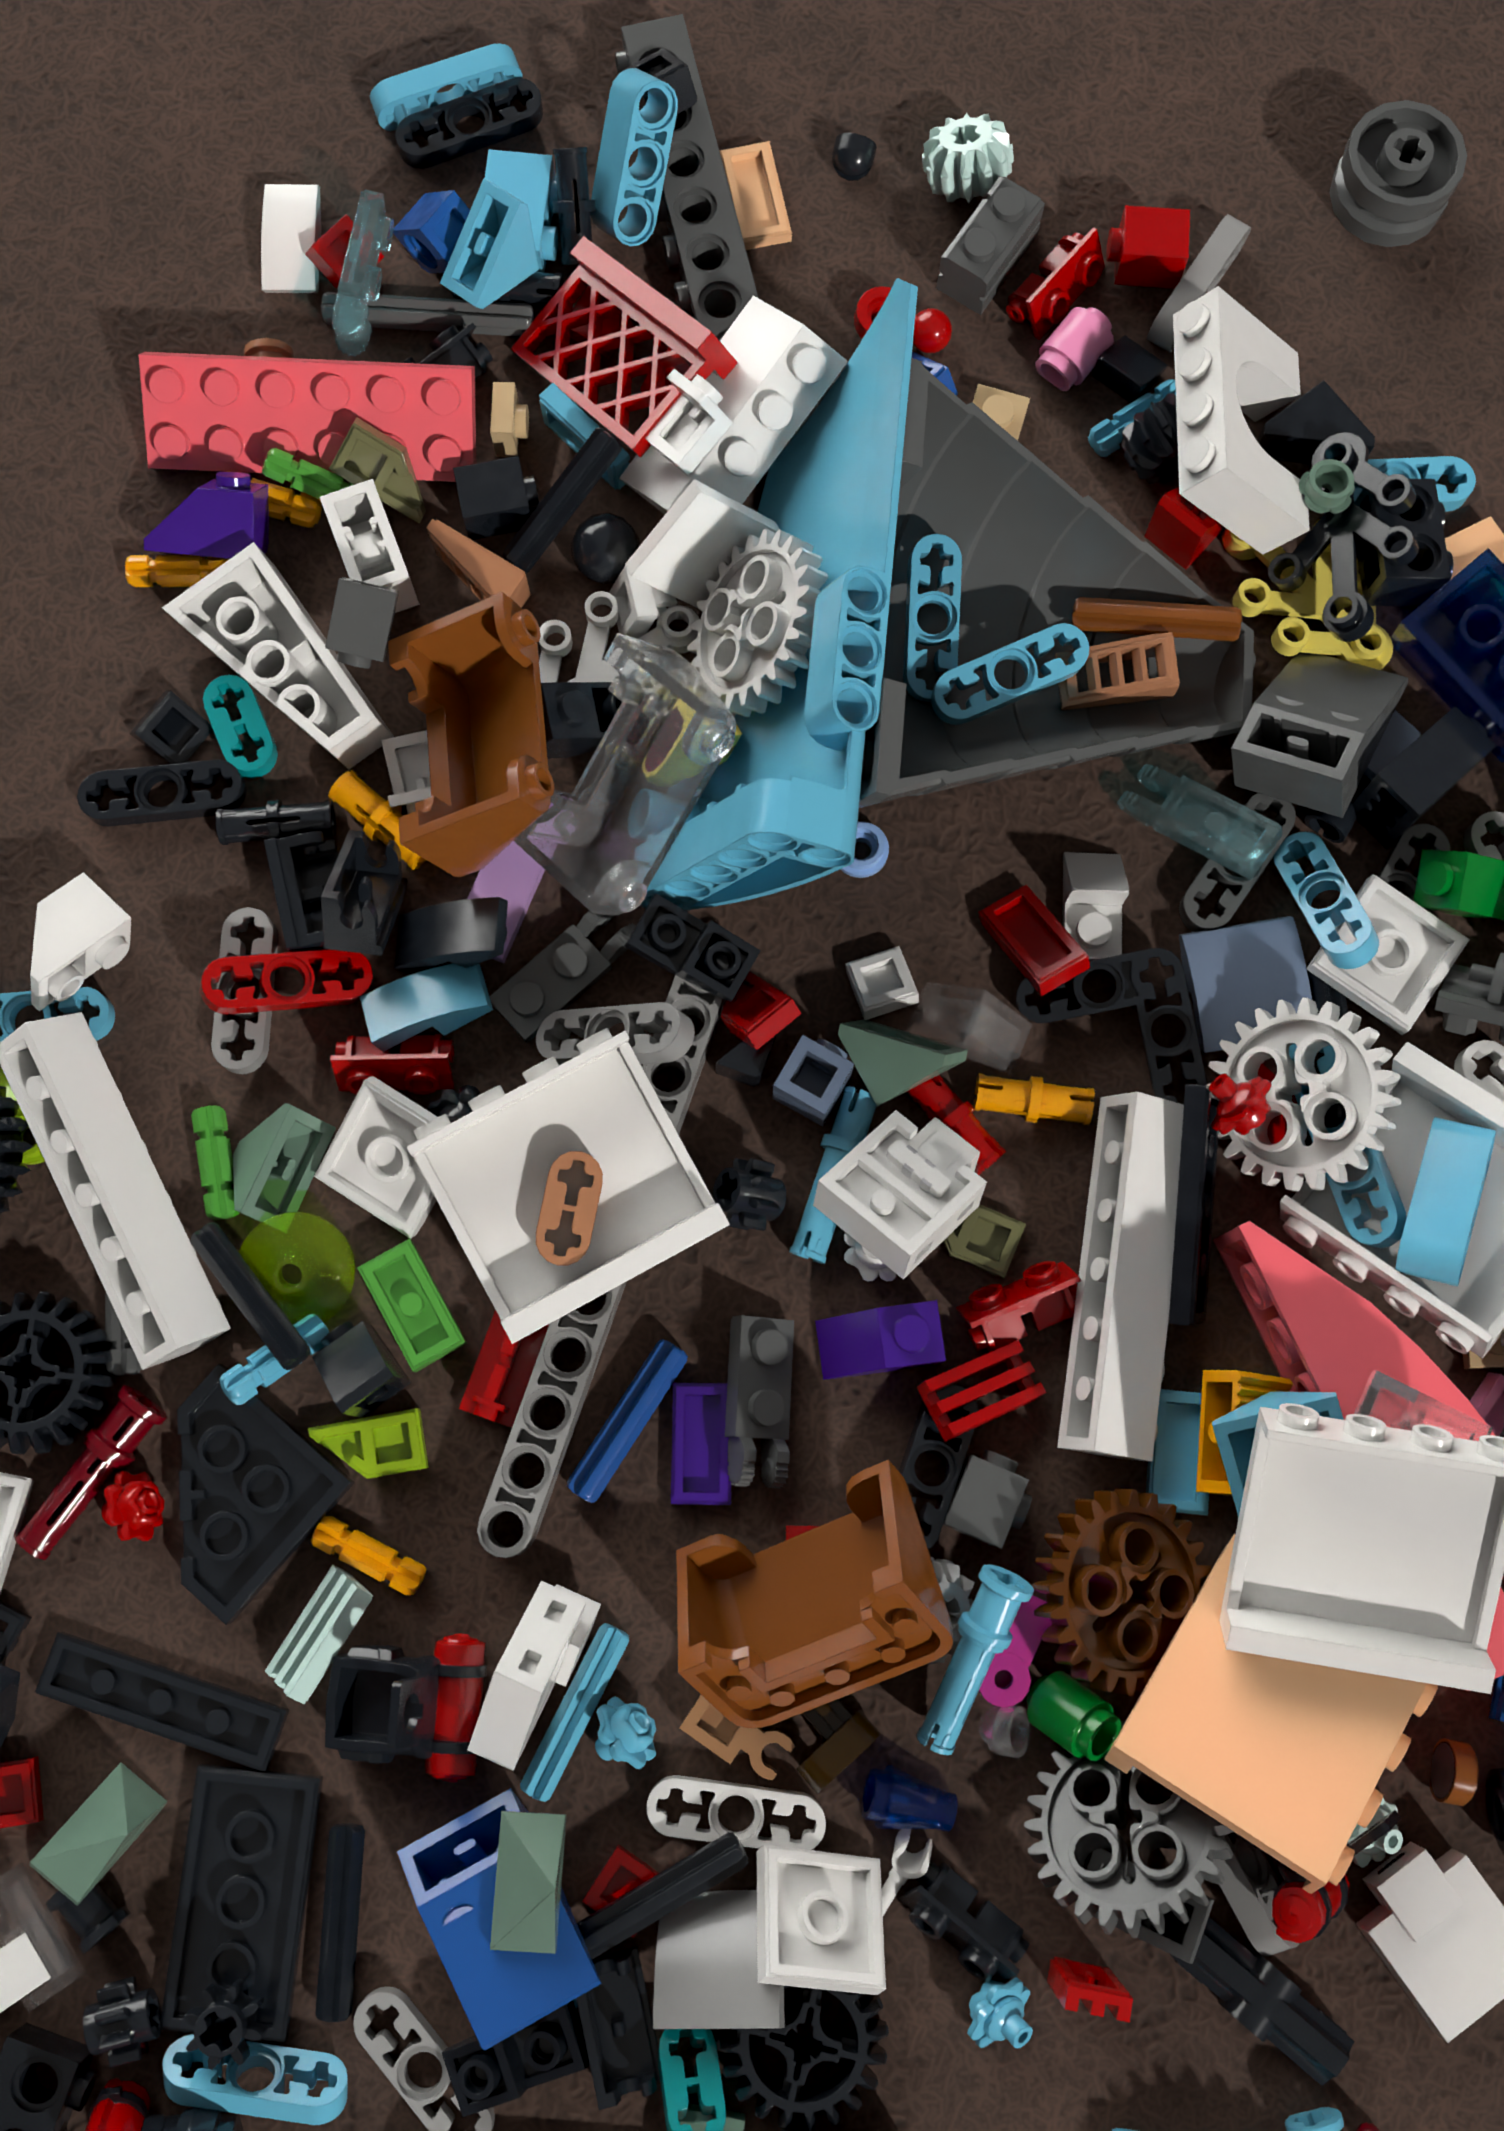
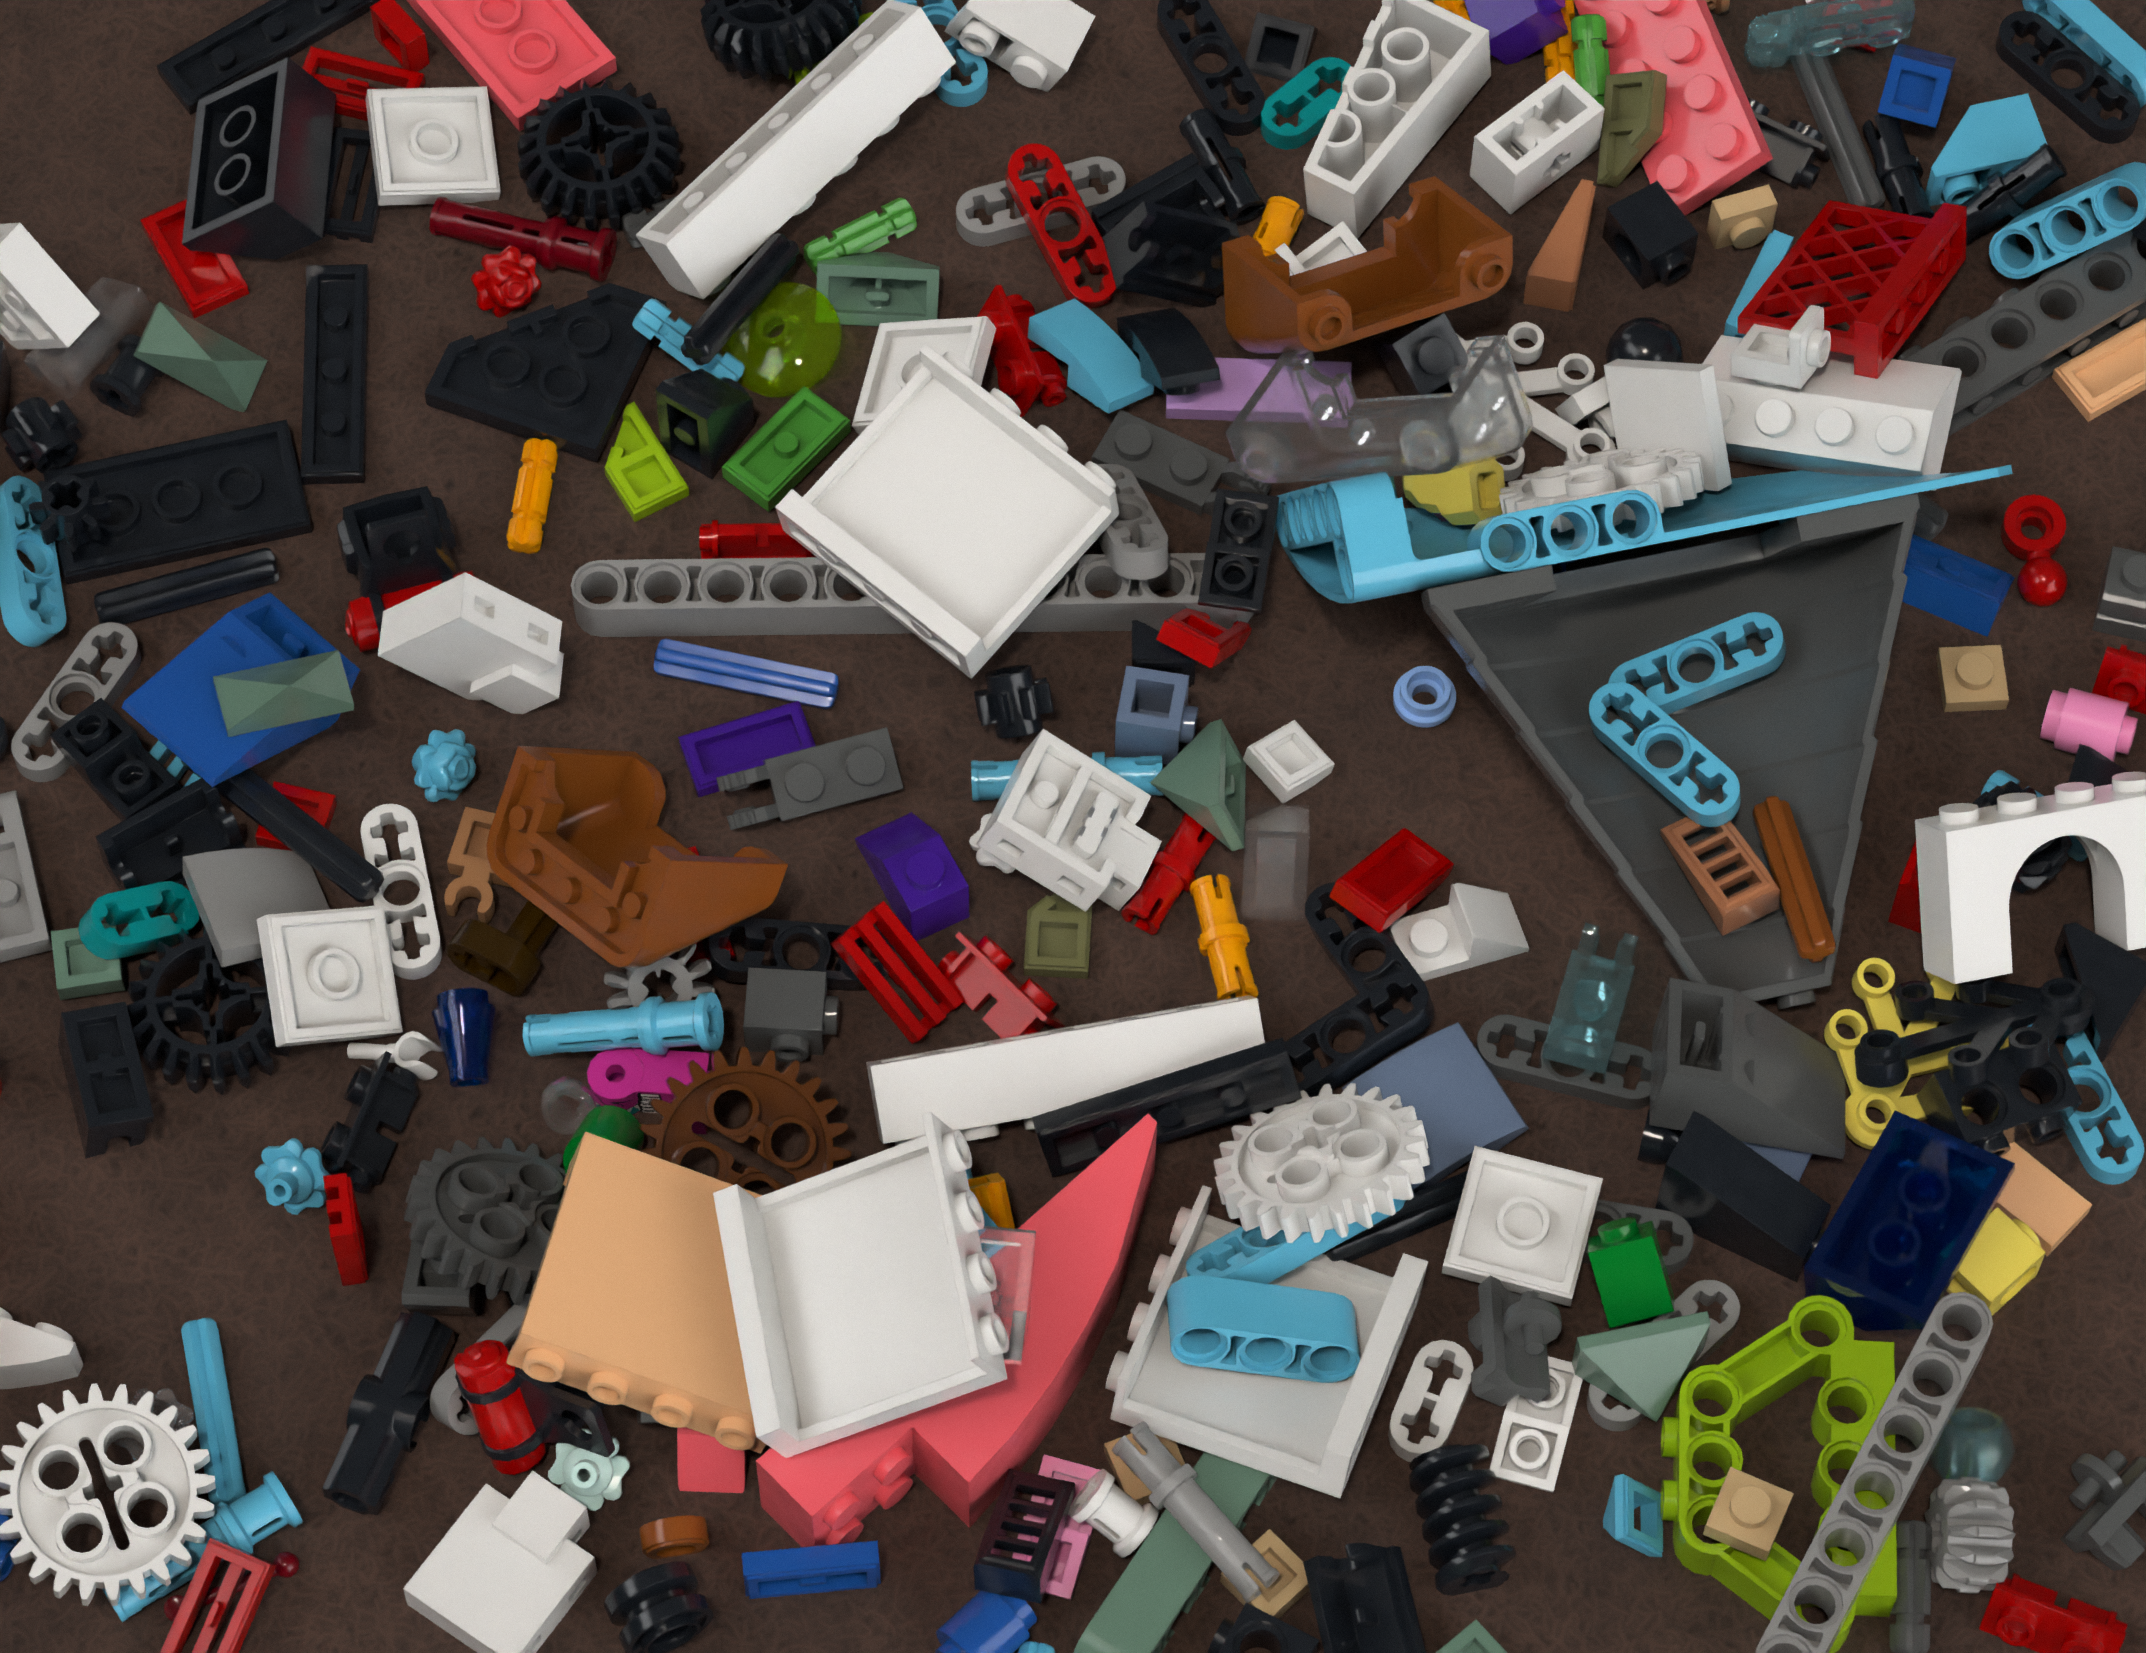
camera: 70 degrees right, 15 degrees down
(318, 1634) = (443, 475): light aqua tile -> none
(361, 622) = (1444, 143): dark grey brick -> none
(492, 249) = (1905, 130): medium azure slope -> none
(562, 499) = (1668, 291): black axle -> none
(574, 1712) = (422, 716): medium azure axle -> none
(584, 1211) = (927, 520): nougat beam -> none
(1240, 1104) = (1281, 1093): red plant -> none
(1332, 476) = (2021, 974): sand green plate -> none
(1345, 909) = (1552, 1138): medium azure beam -> none

